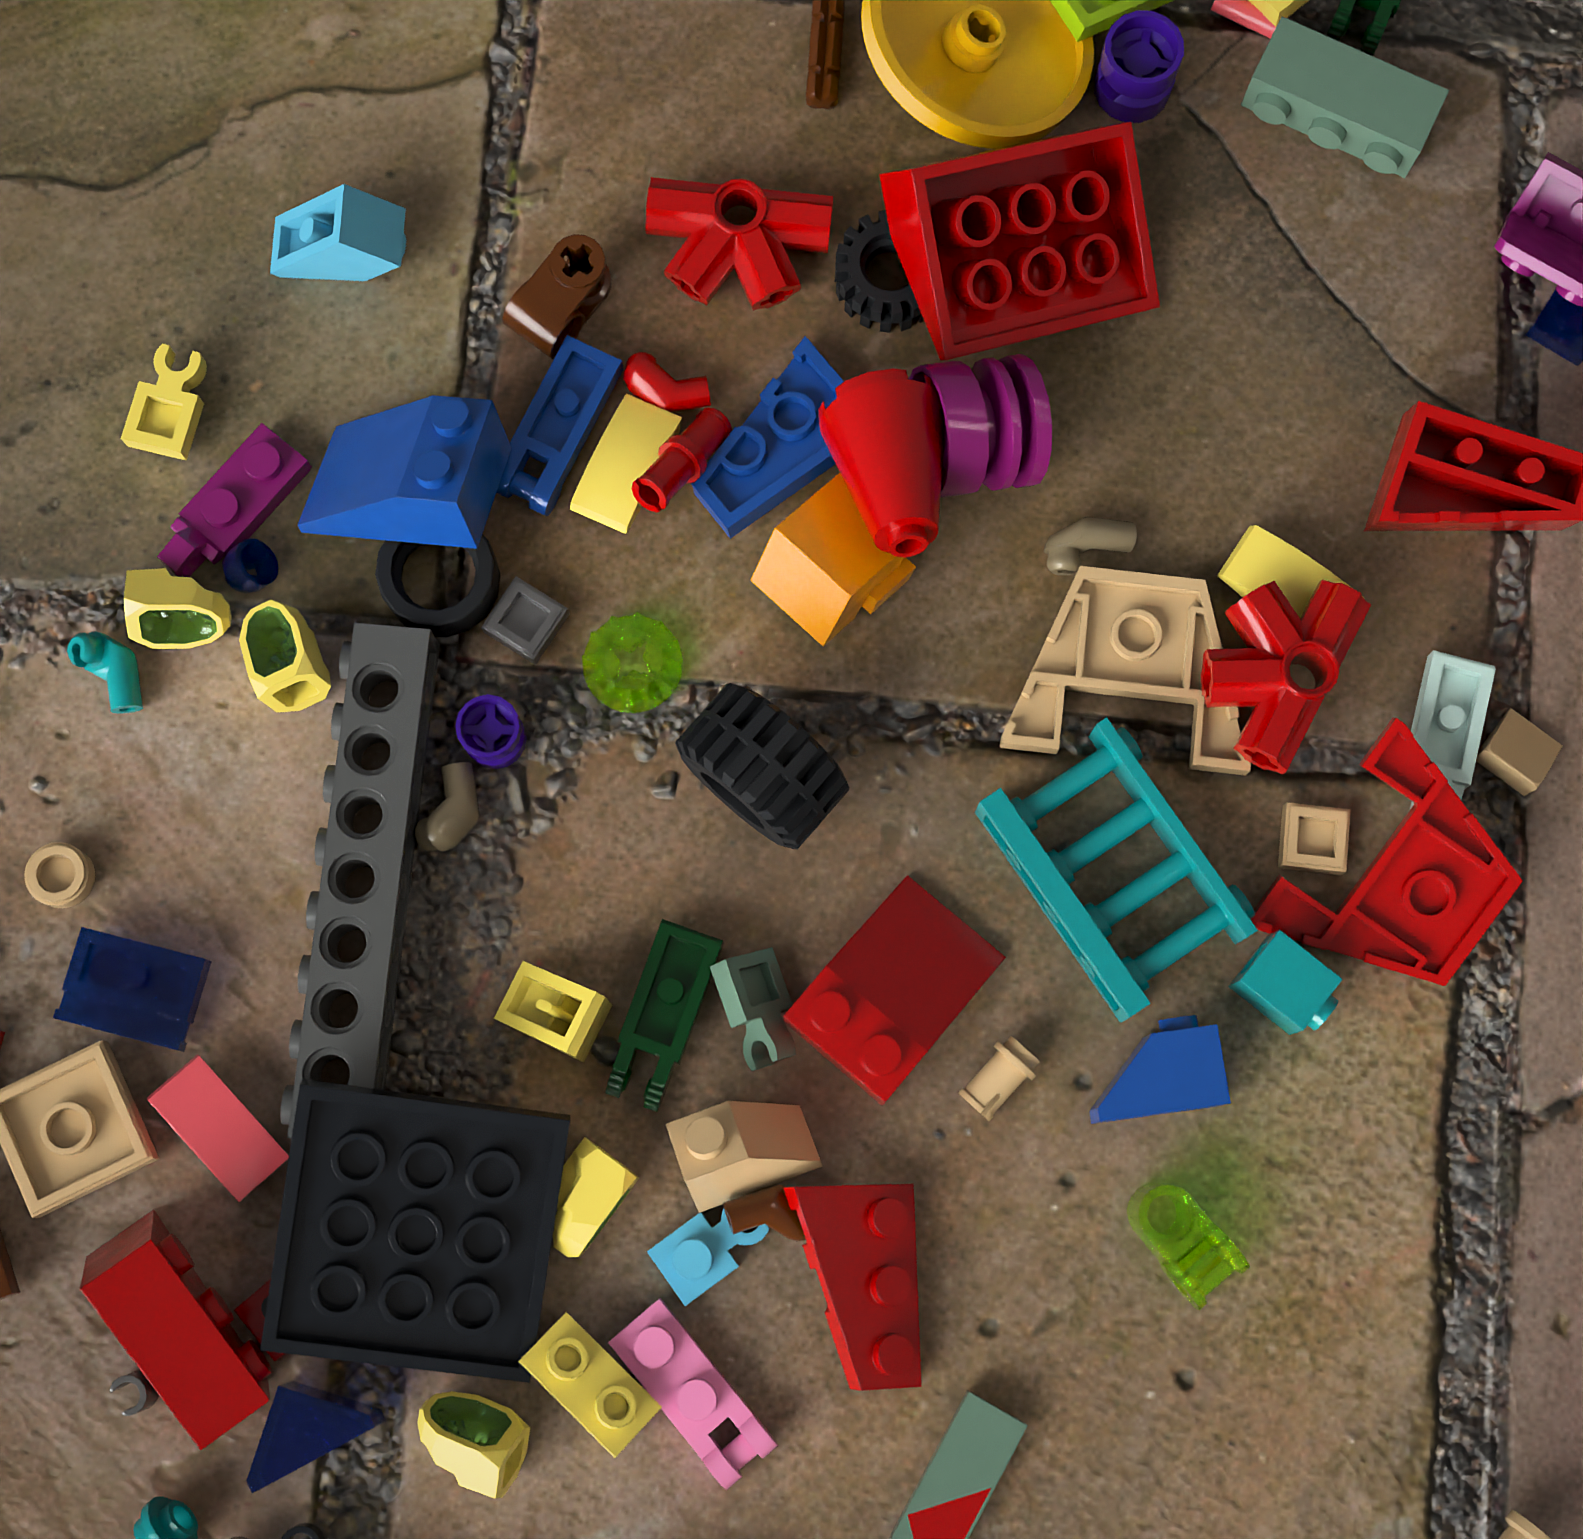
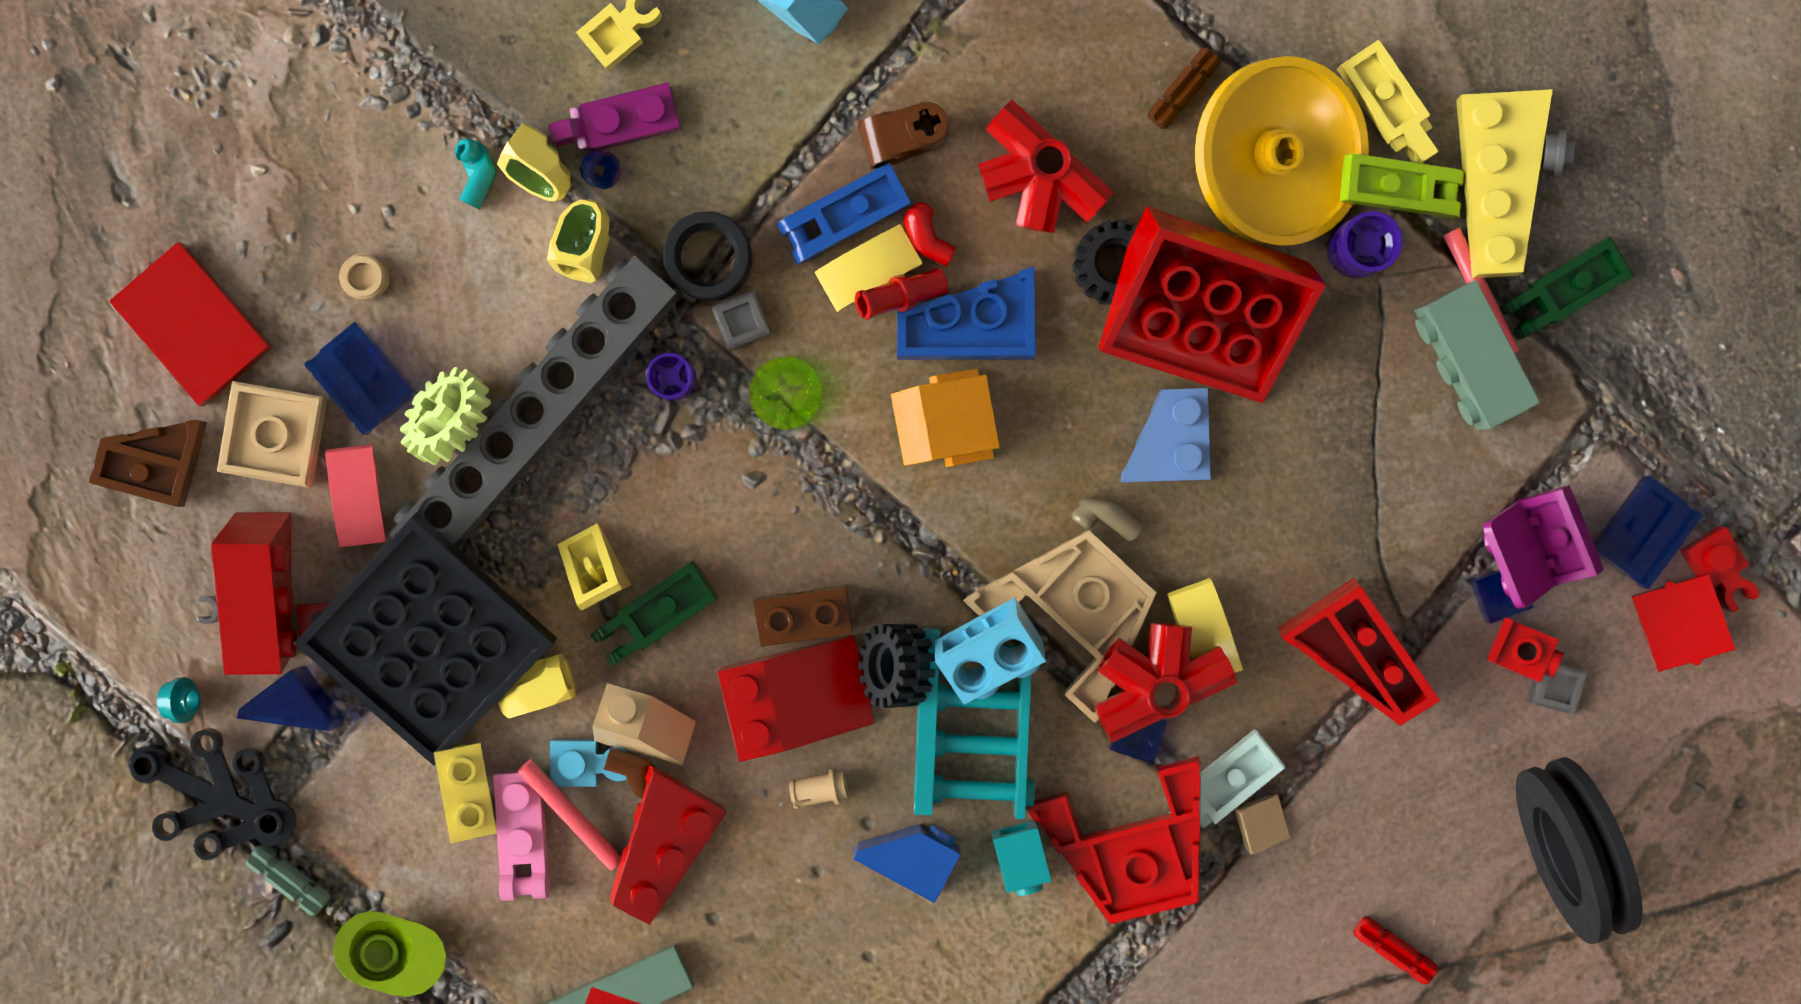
camera: 40 degrees right, 10 degrees up
(260, 954) = (445, 416): none -> yellowish green gear
(411, 474) = (730, 186): blue slope -> none
(455, 815) = (616, 410): dark tan arm -> none
(474, 1440) = (380, 775): light yellow rock -> none
(733, 1321) = (570, 814): none -> coral bar
(756, 997) = (711, 643): sand green plate -> none
(762, 765) = (809, 519): black tyre -> none
(834, 887) = (803, 615): none -> reddish brown brick
(890, 455) = (1017, 394): red cone -> none
(993, 423) = (1088, 406): magenta wheel -> none
(1001, 848) = (896, 665): none -> black tyre
(1059, 755) = (982, 642): none -> medium azure brick
(1095, 412) = (1174, 439): none -> medium blue wing
(1190, 1252) = (854, 960): clear neon green piece -> none
(1314, 838) = (1104, 785): tan tile -> none
(1316, 760) = (1142, 743): none -> clear blue tile

